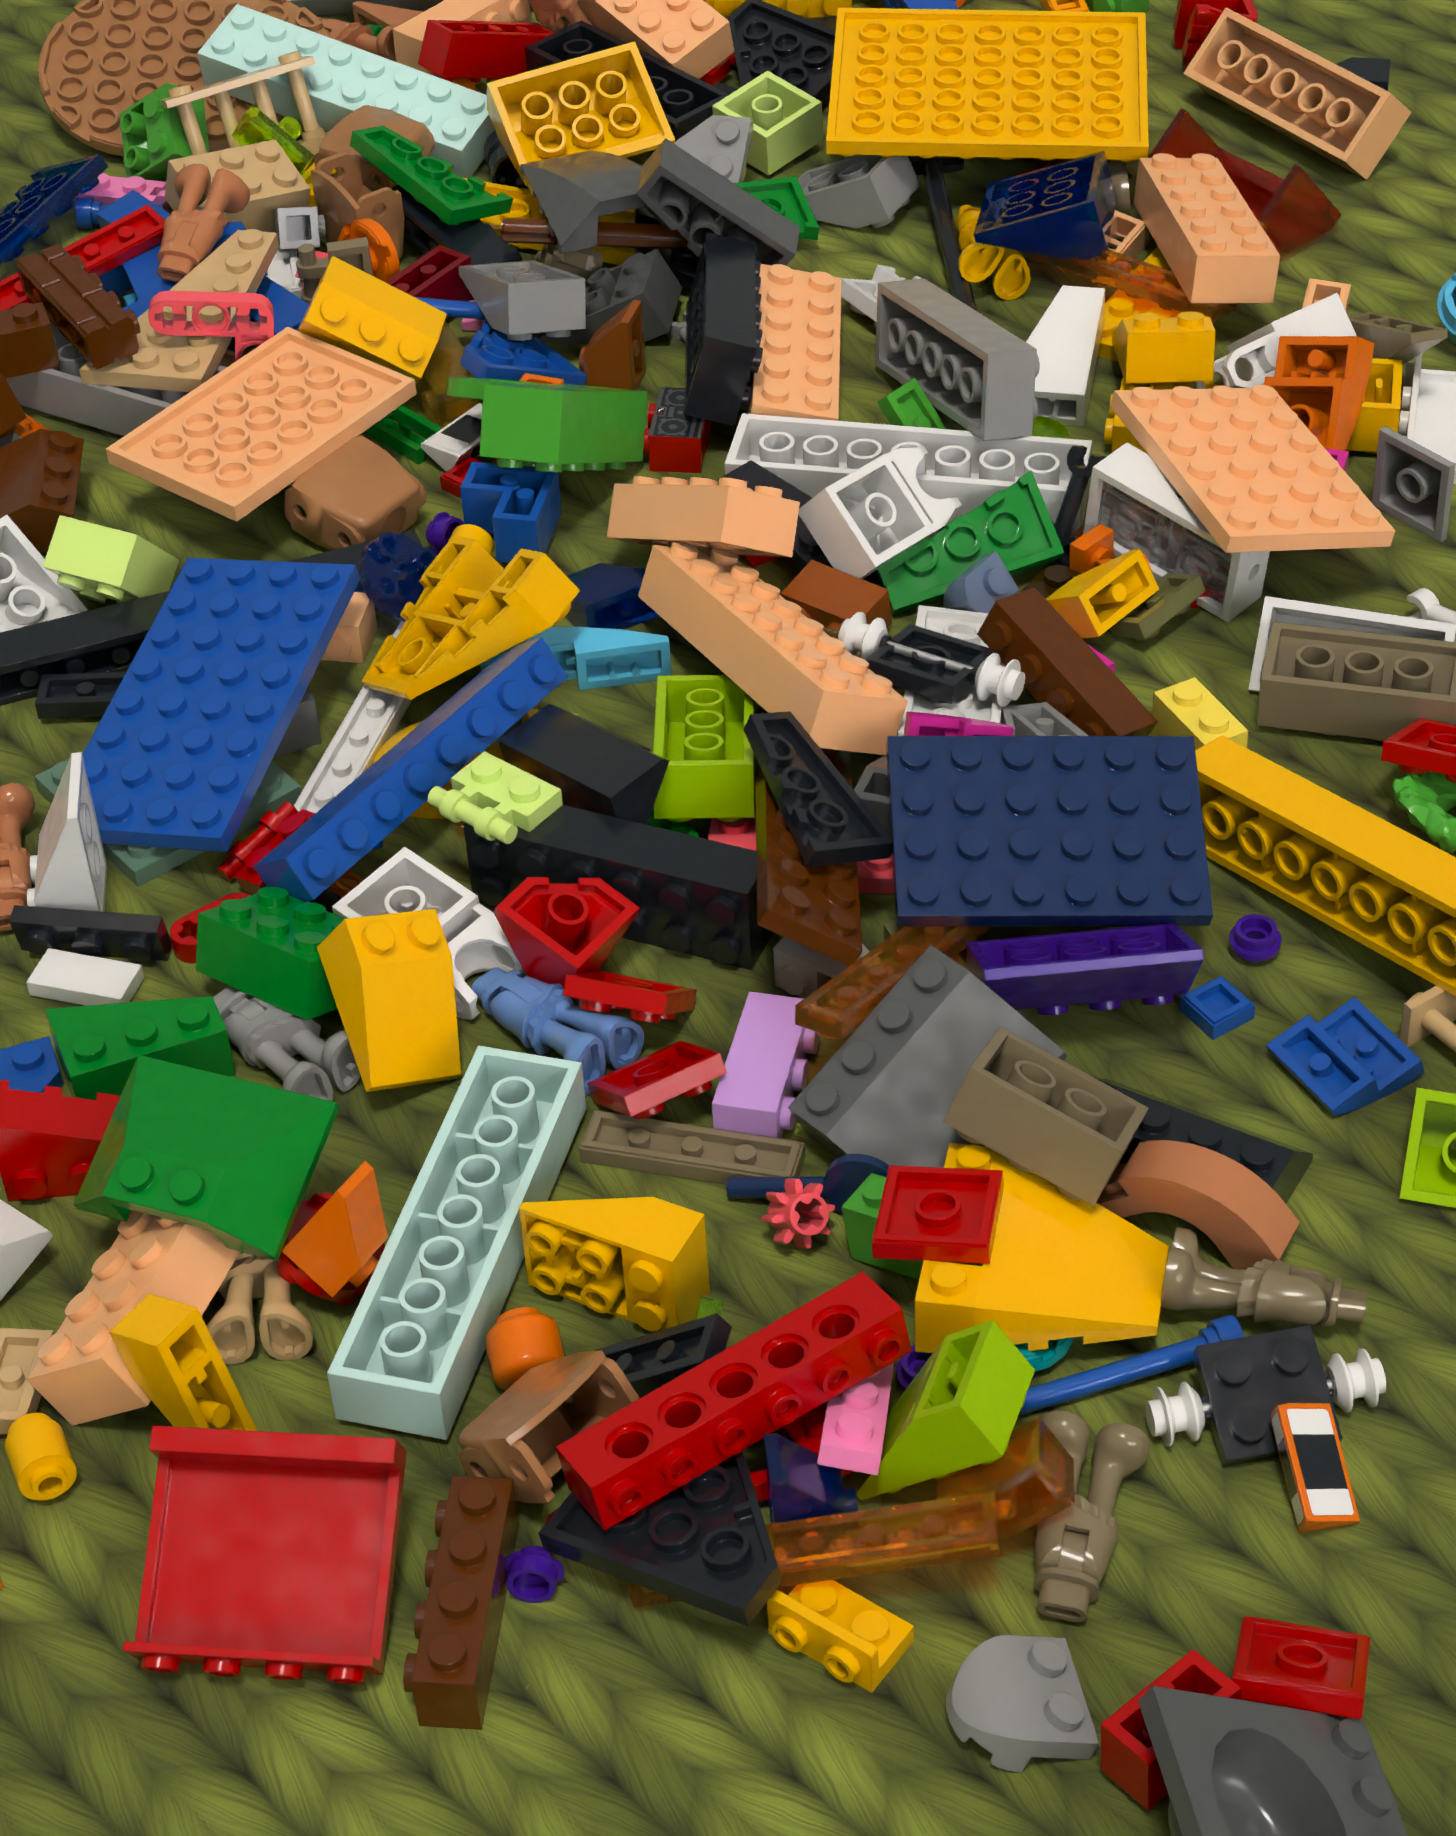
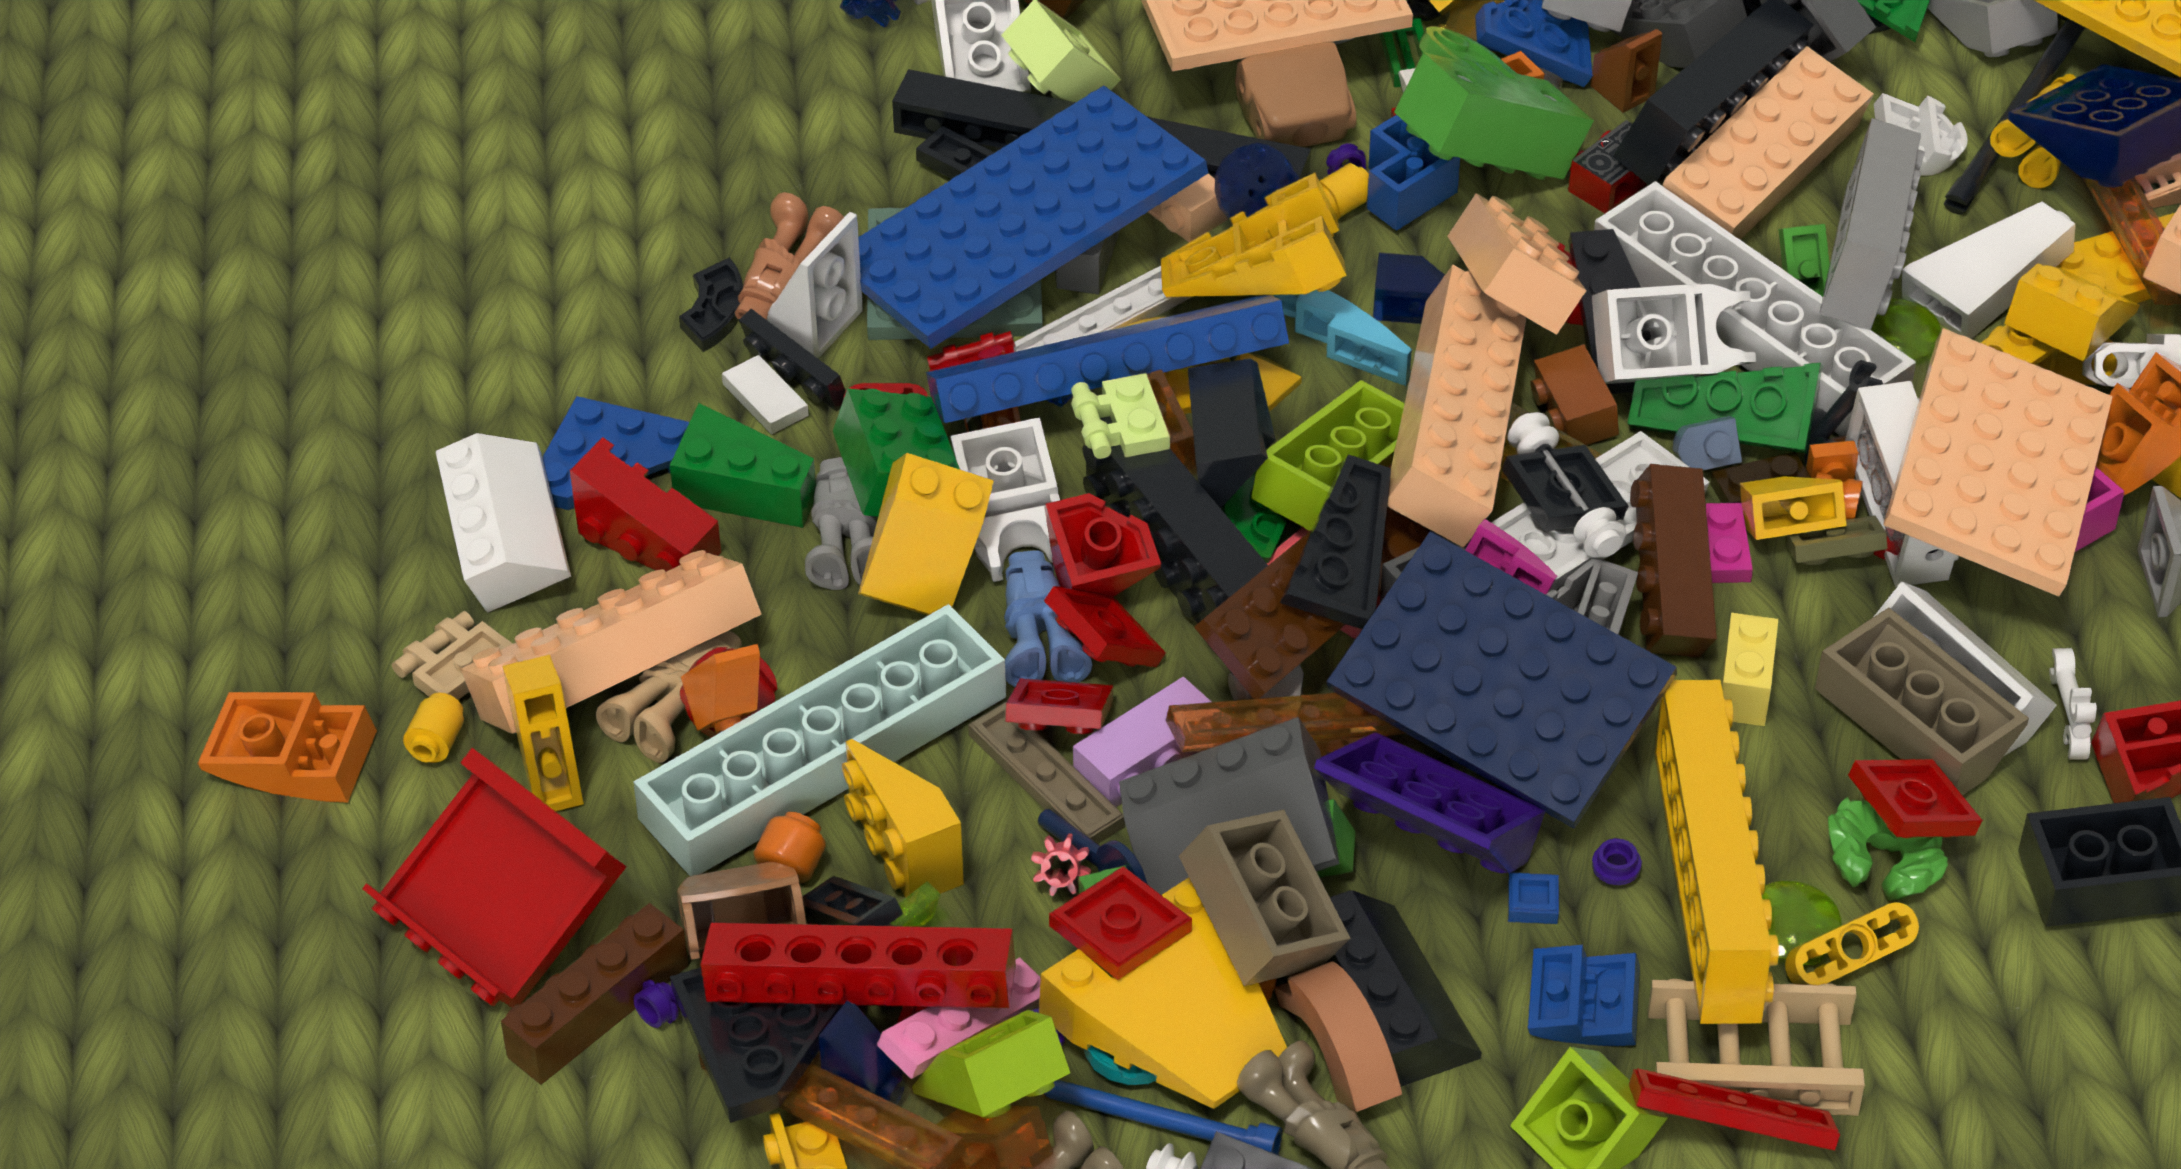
camera: 35 degrees right, 5 degrees up
(208, 1154) = (683, 579): green slope -> none

